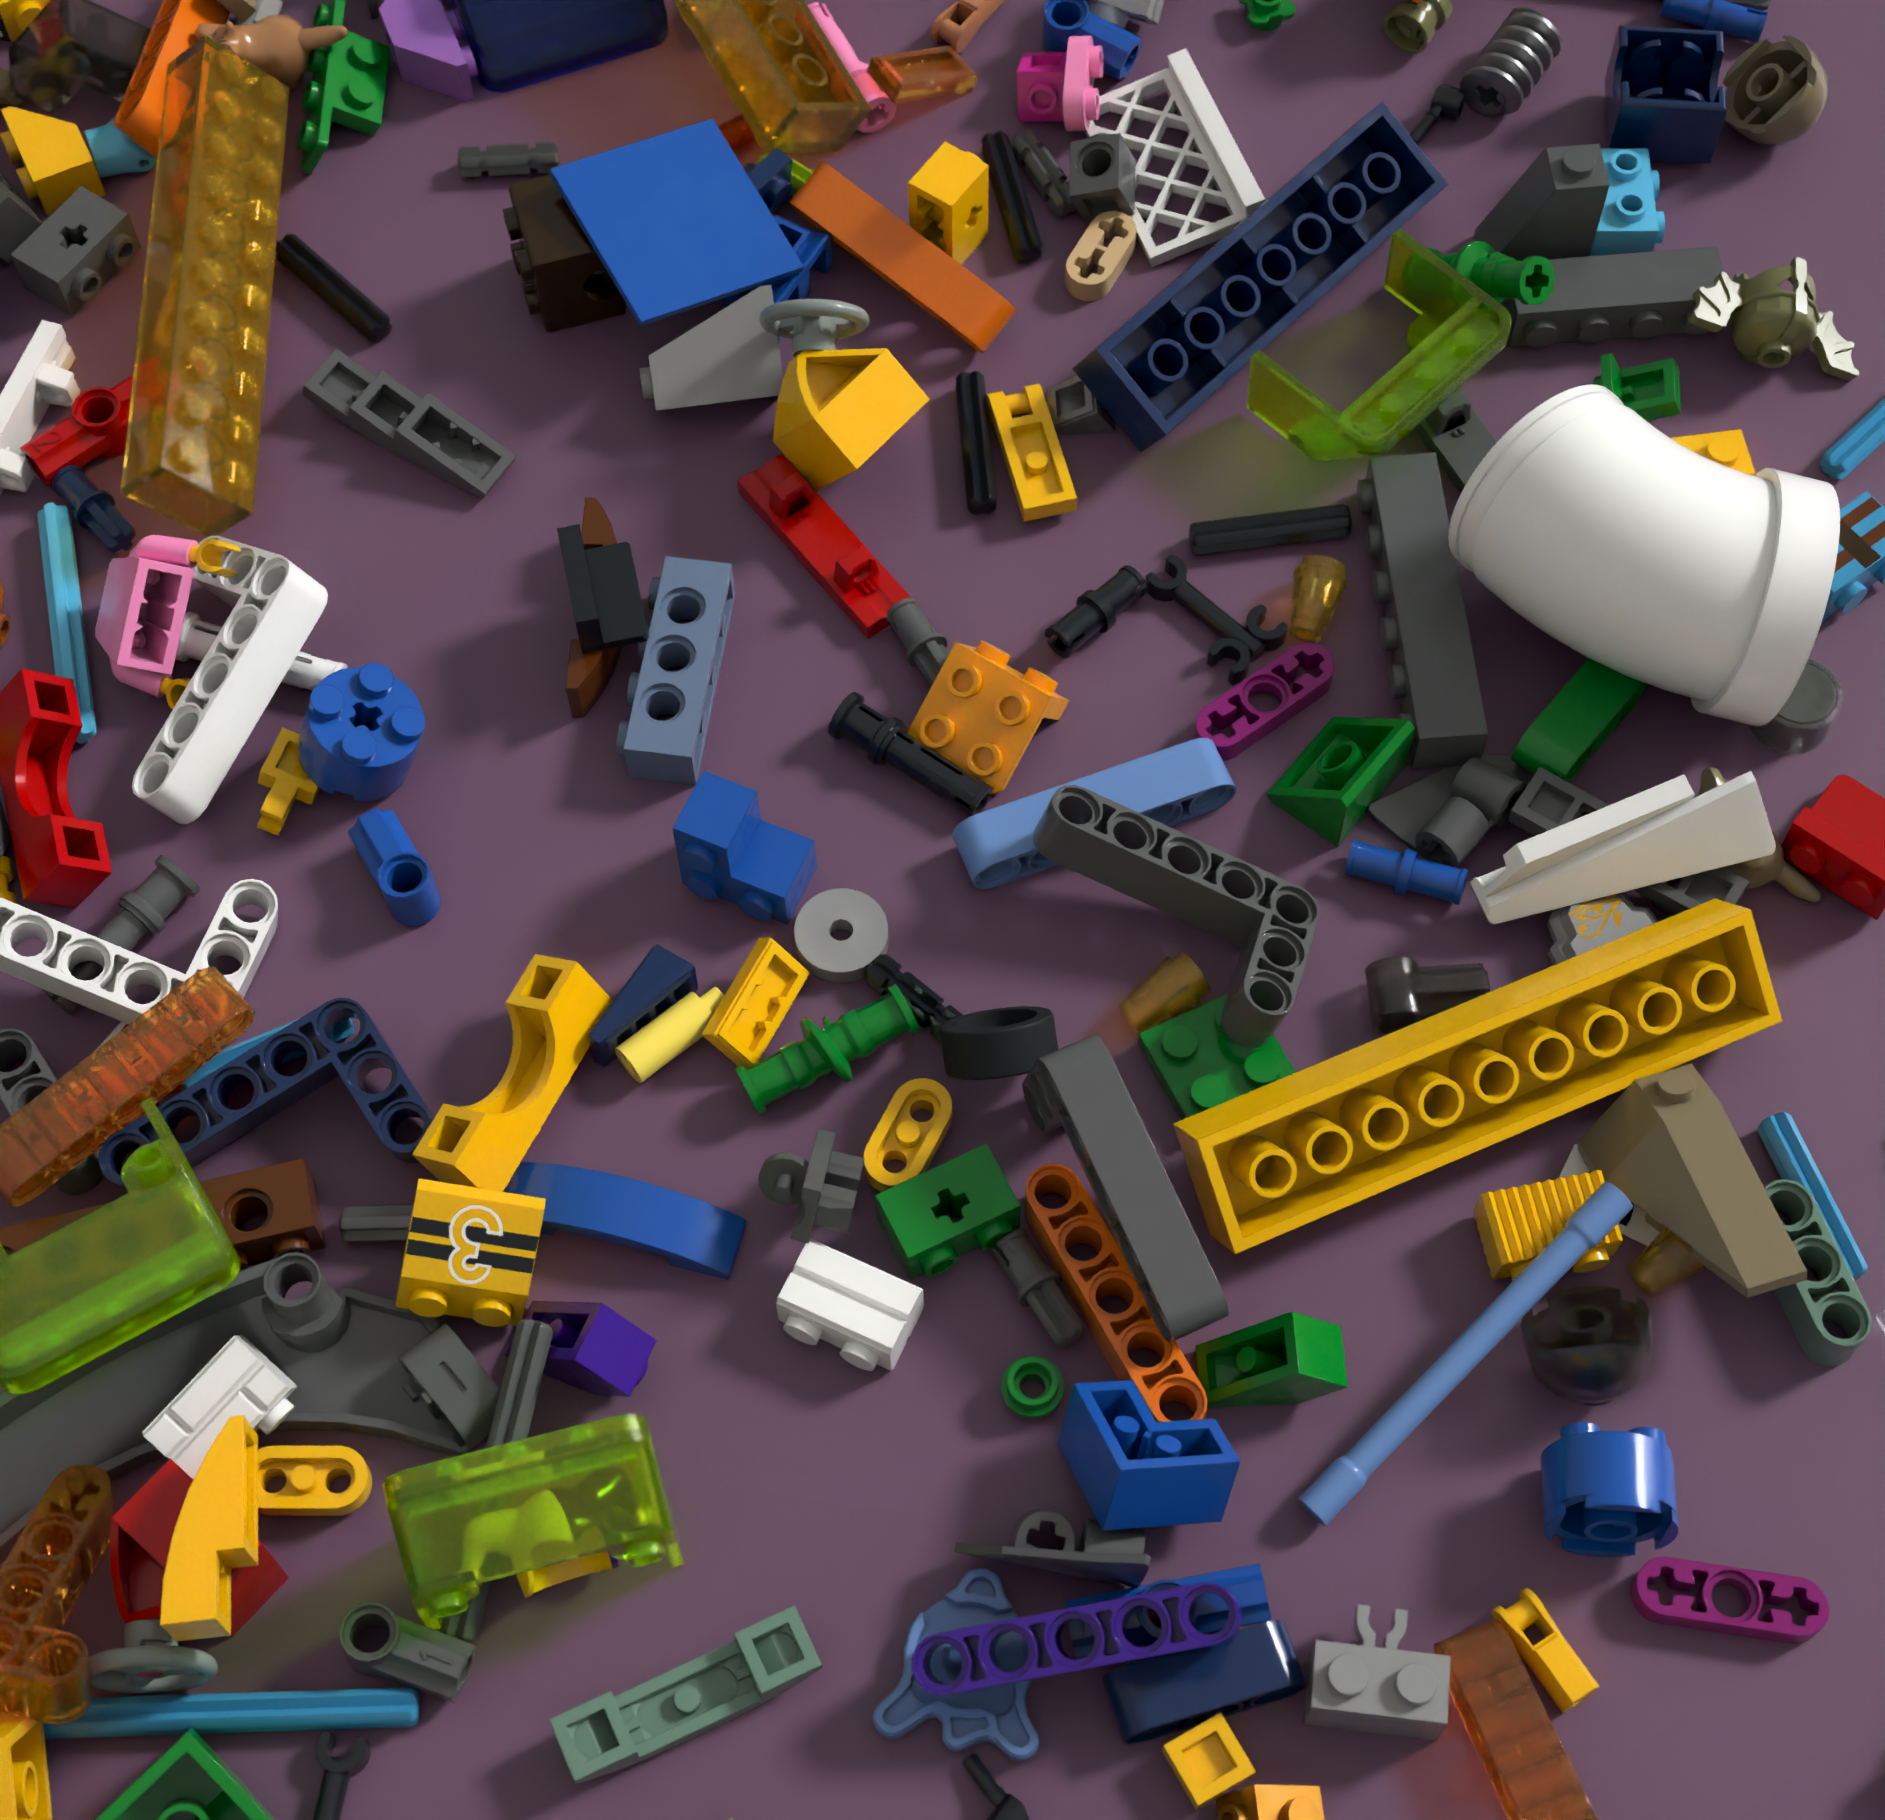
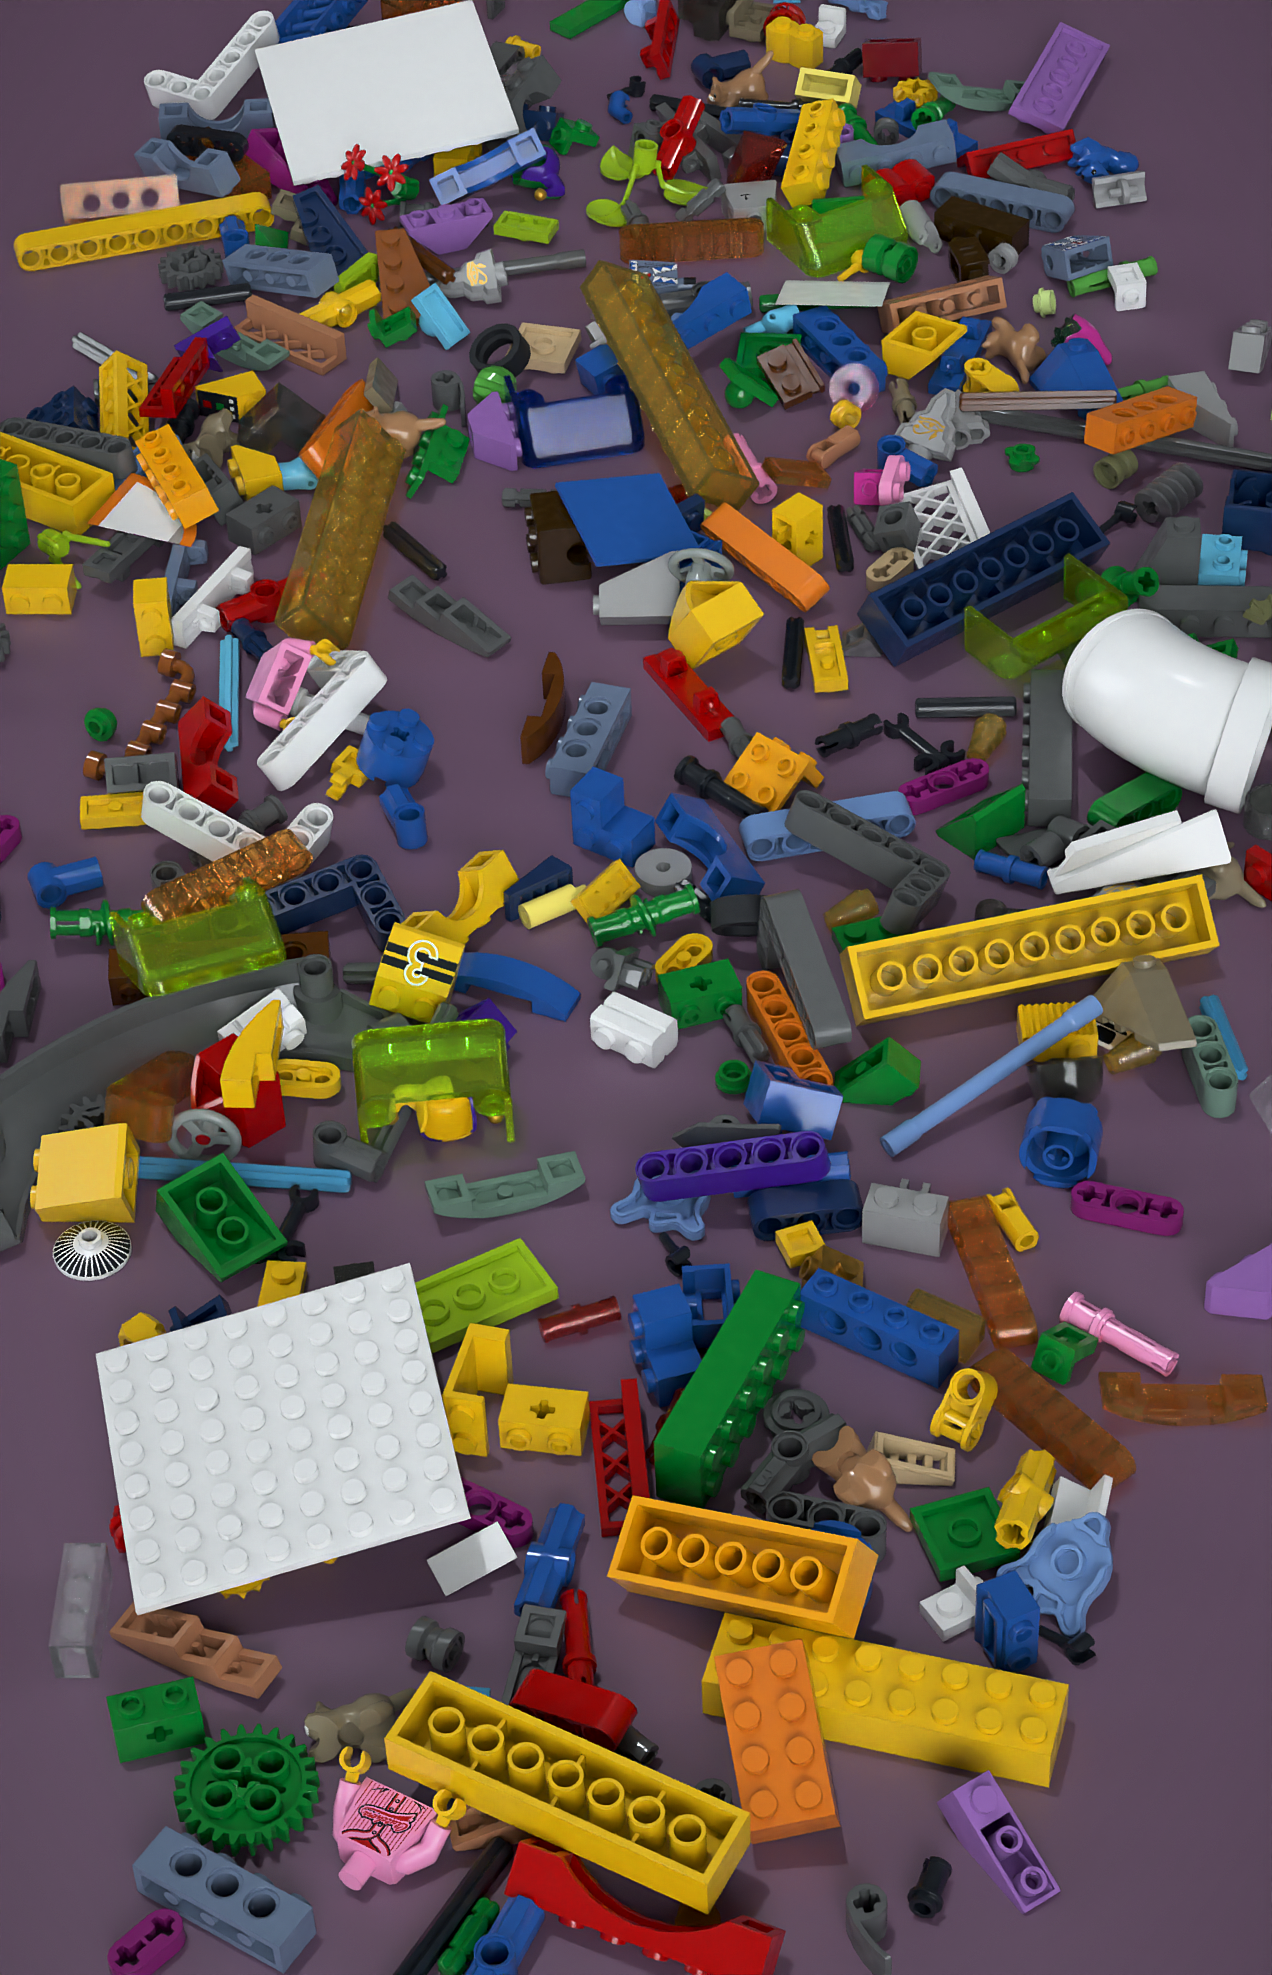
camera: 10 degrees right, 20 degrees down
(602, 592) = (550, 692): black panel -> none
(881, 846) = (696, 828): none -> blue arch

